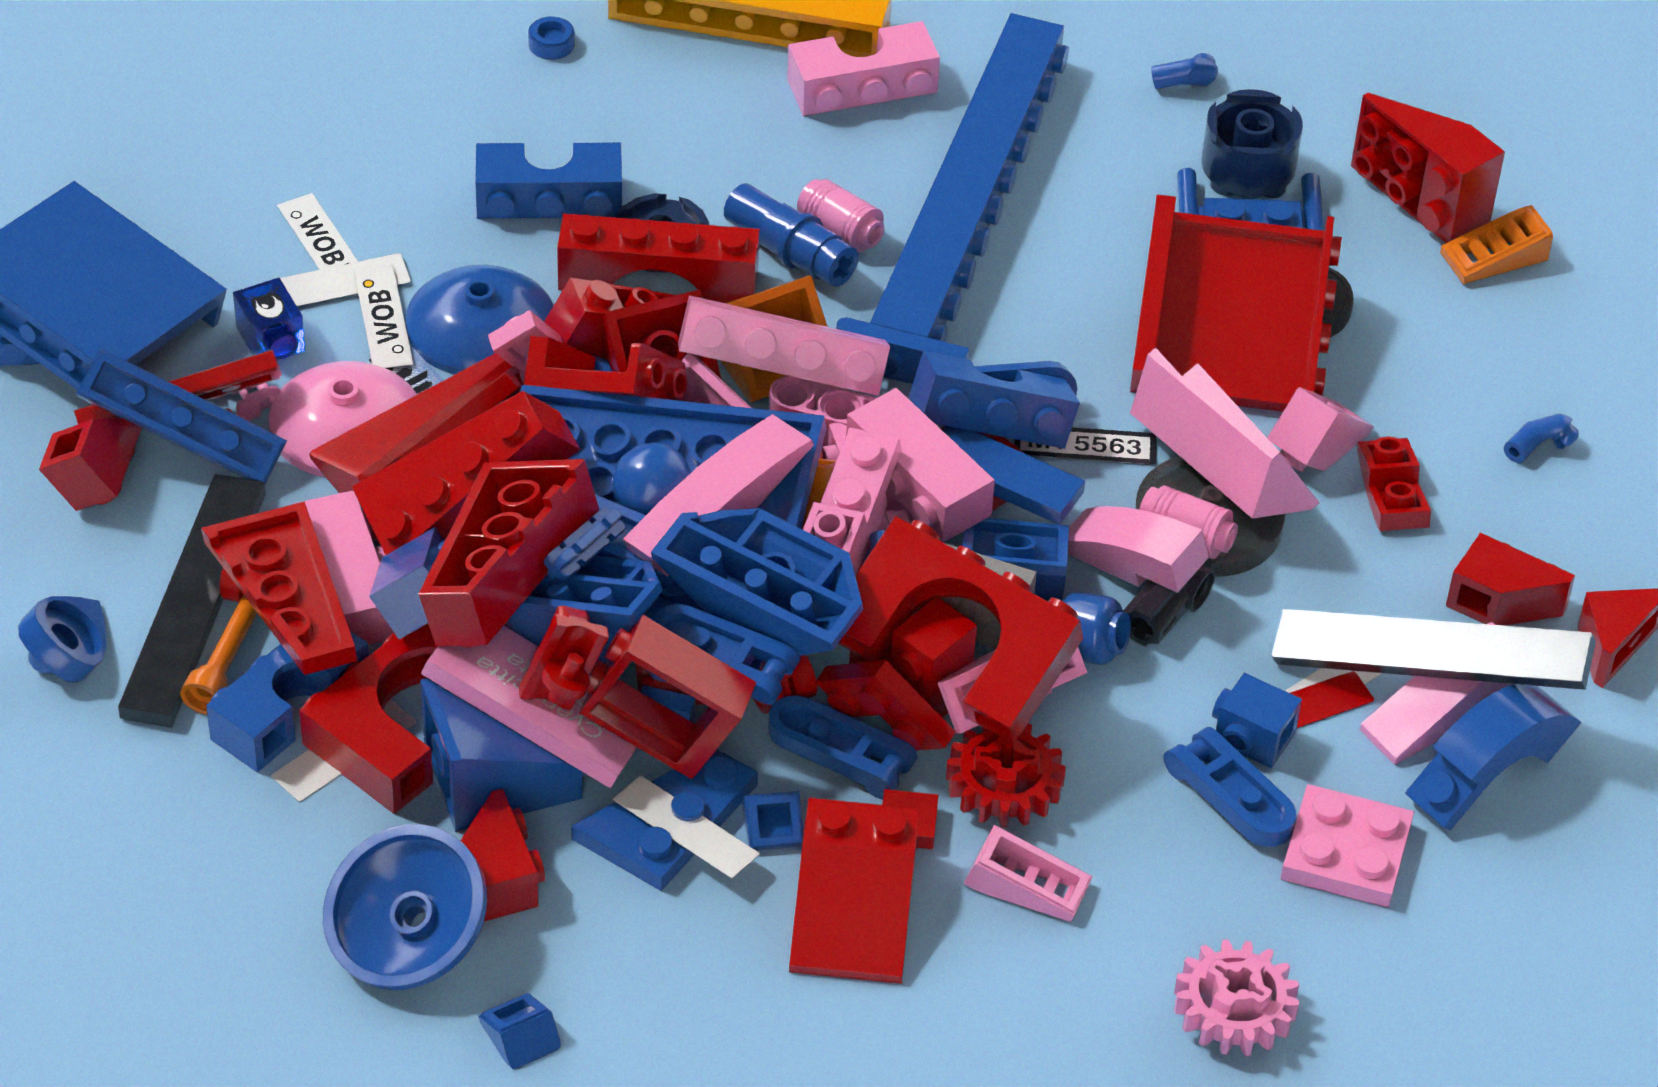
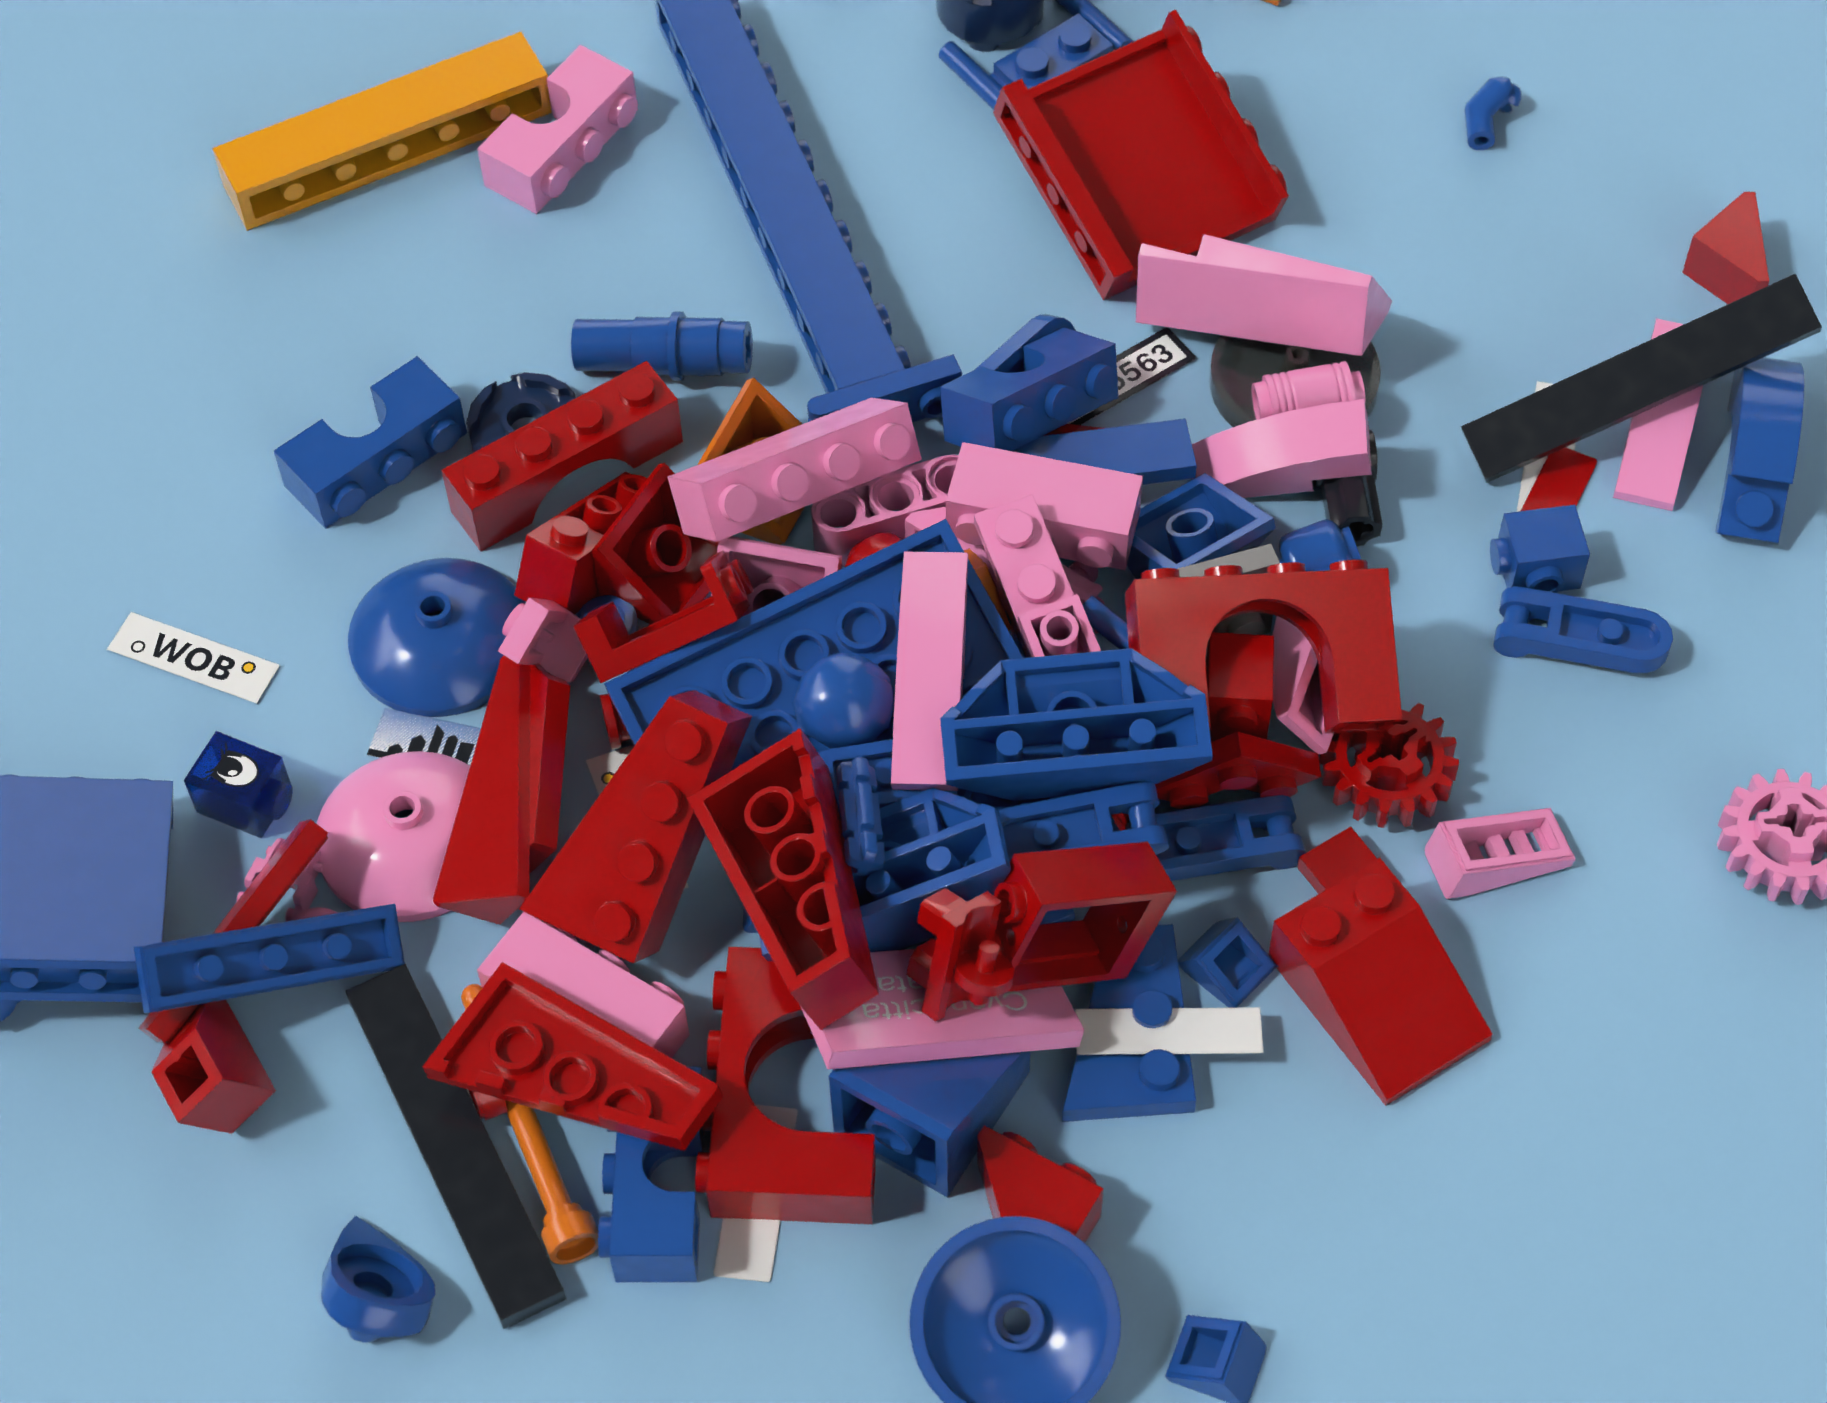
camera: 35 degrees left, 10 degrees up
(338, 280) = (258, 685): white sticker -> none
(383, 316) = (339, 698): white sticker -> none
(401, 579) = (701, 967): blue piece -> none
(551, 38) = (215, 287): blue tile -> none
(843, 213) = (686, 289): bright pink head -> none
(1316, 431) = (1316, 227): bright pink slope -> none
(1347, 845) = (1721, 617): bright pink plate -> none
(1392, 484) = (1410, 238): red slope -> none
(1507, 585) = (1605, 273): red slope -> none

